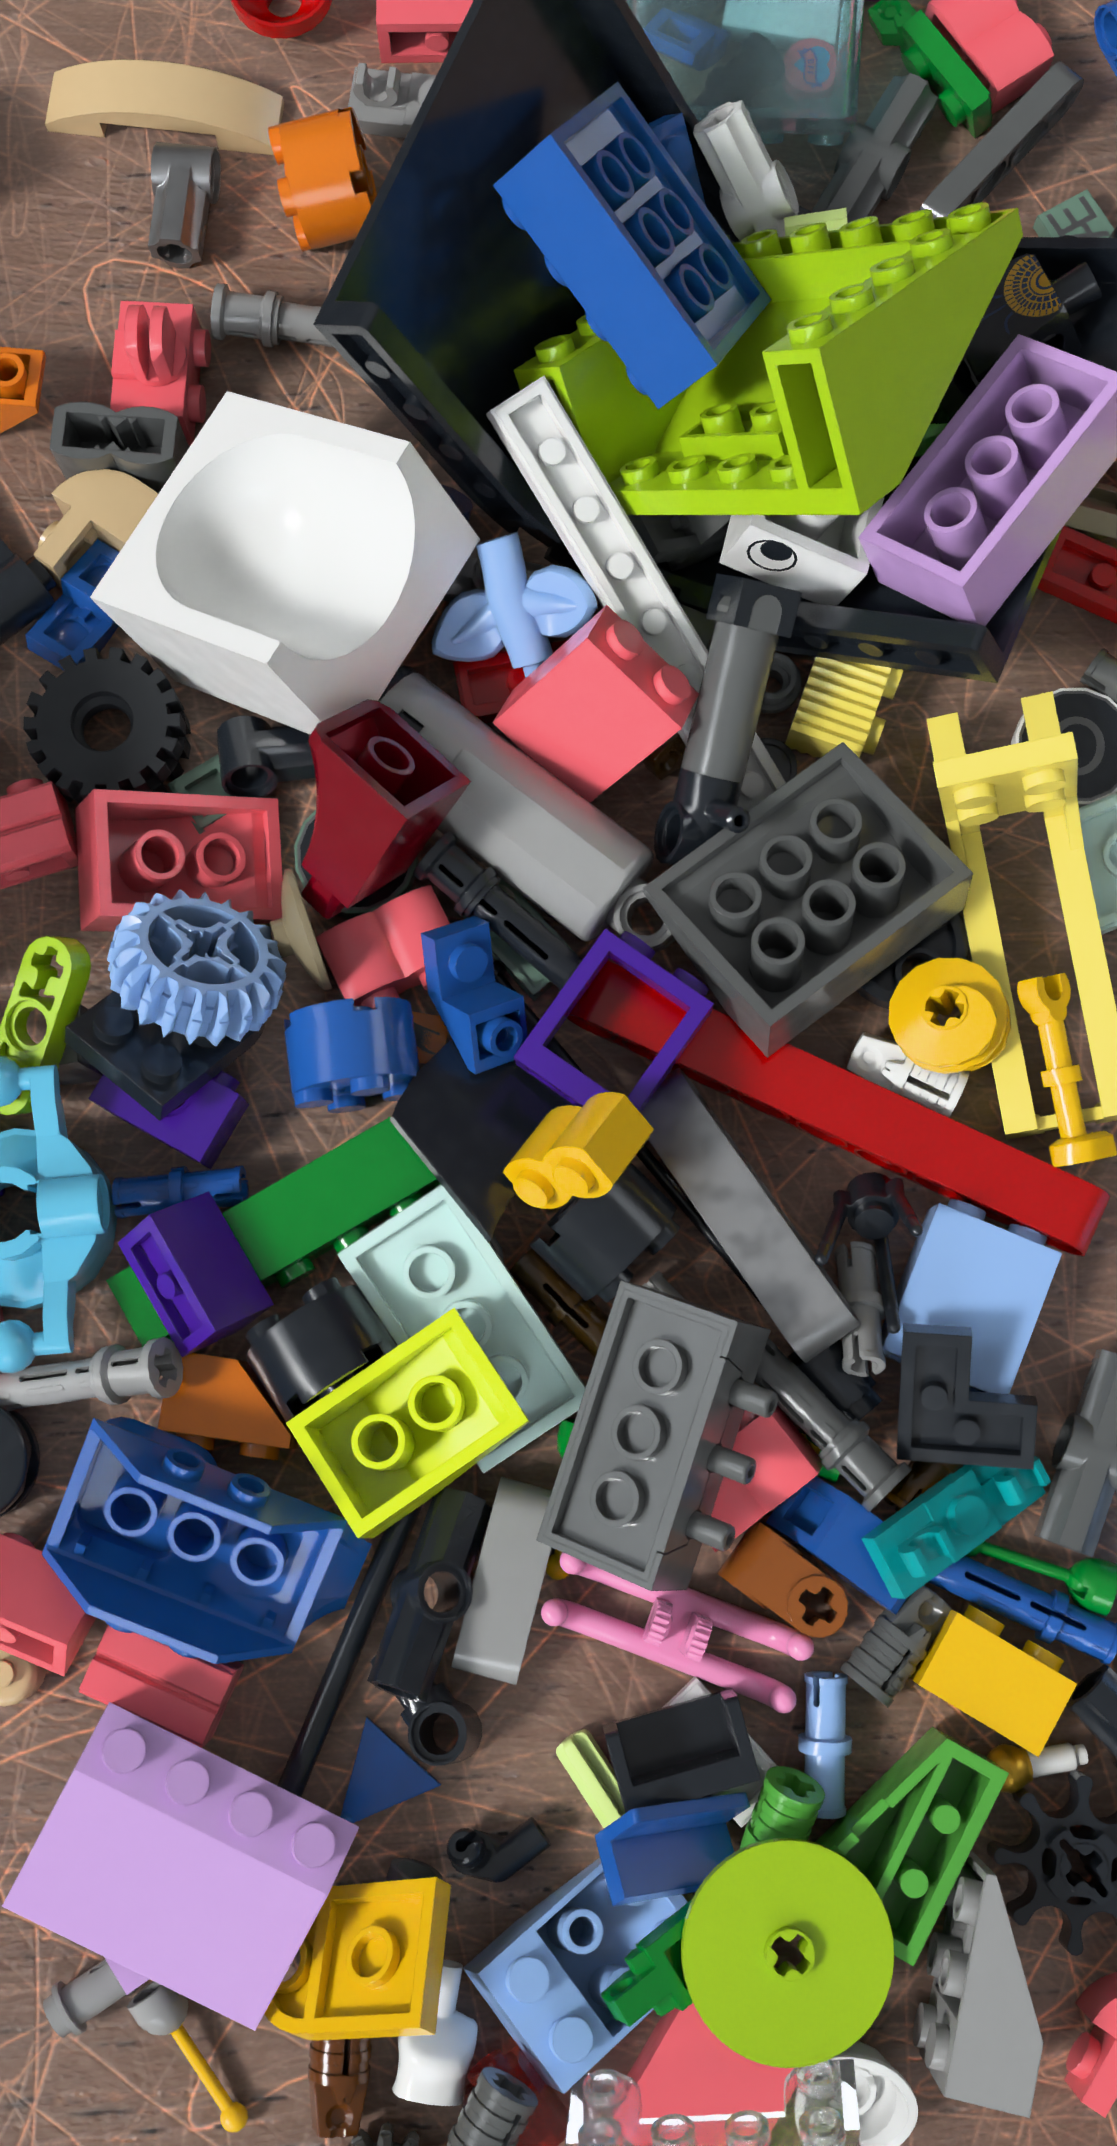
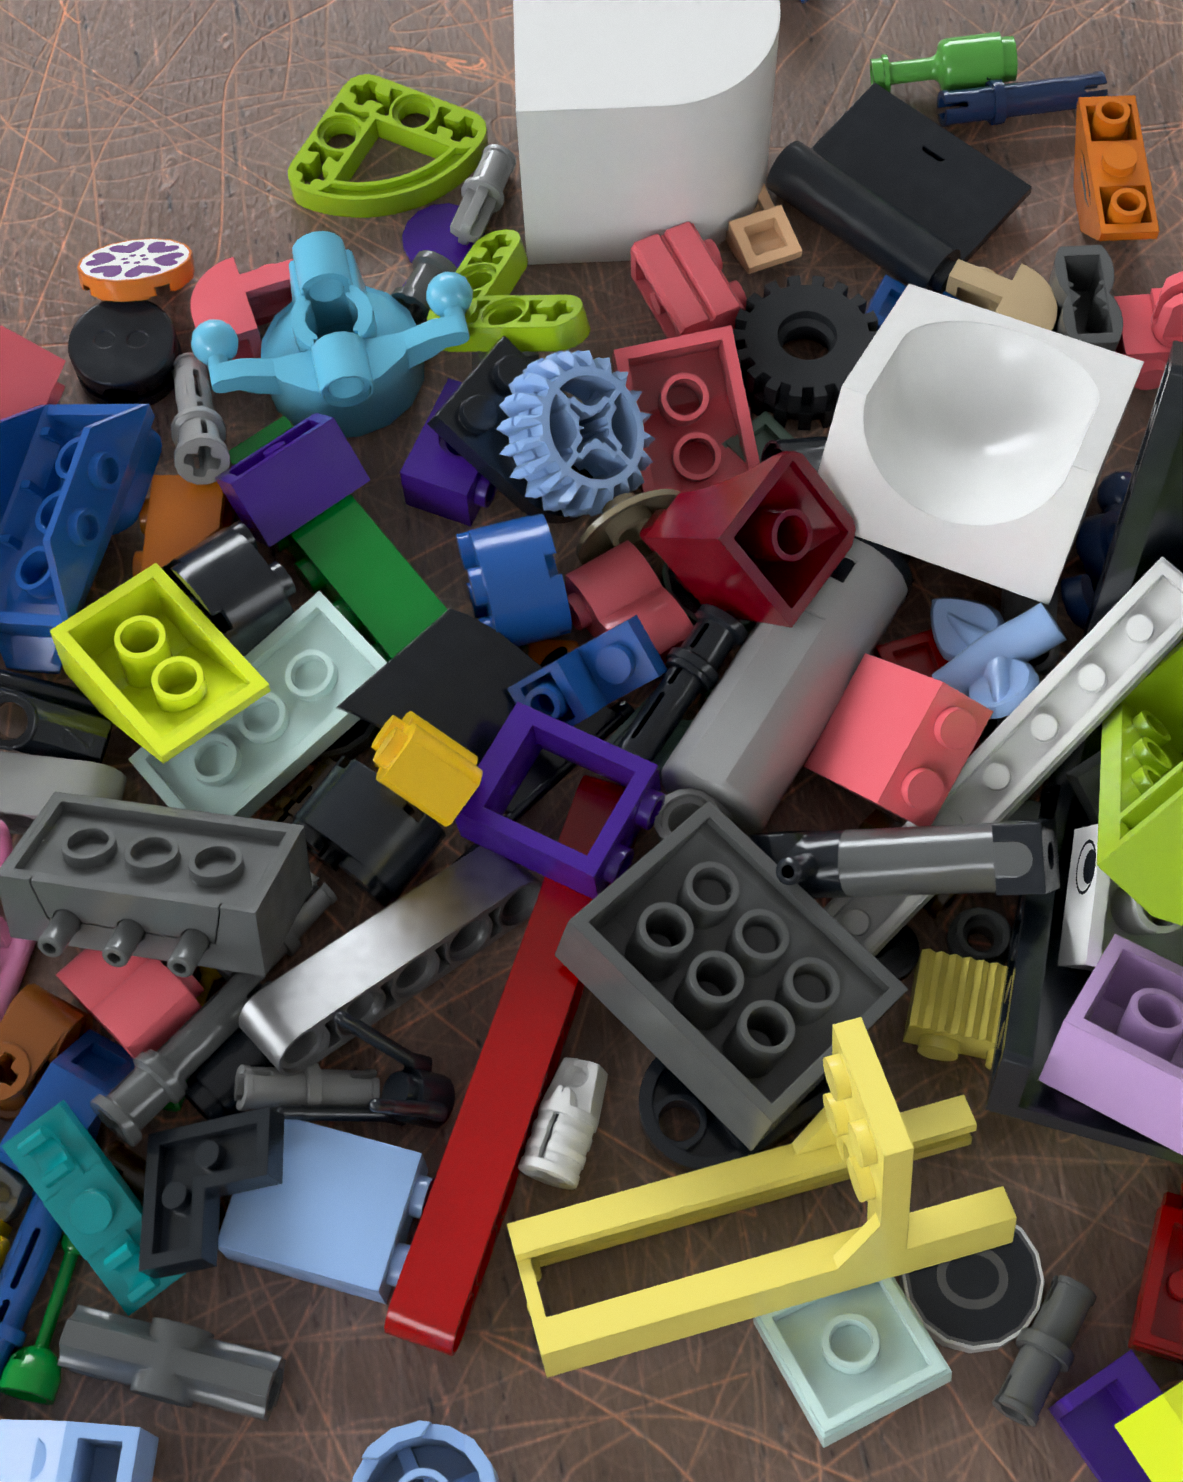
camera: 85 degrees right, 15 degrees down
(156, 1192) = (382, 490): blue pin -> none
(936, 990) = (624, 1143): yellow piece -> none
(1047, 1004) = (499, 1296): yellow piece -> none

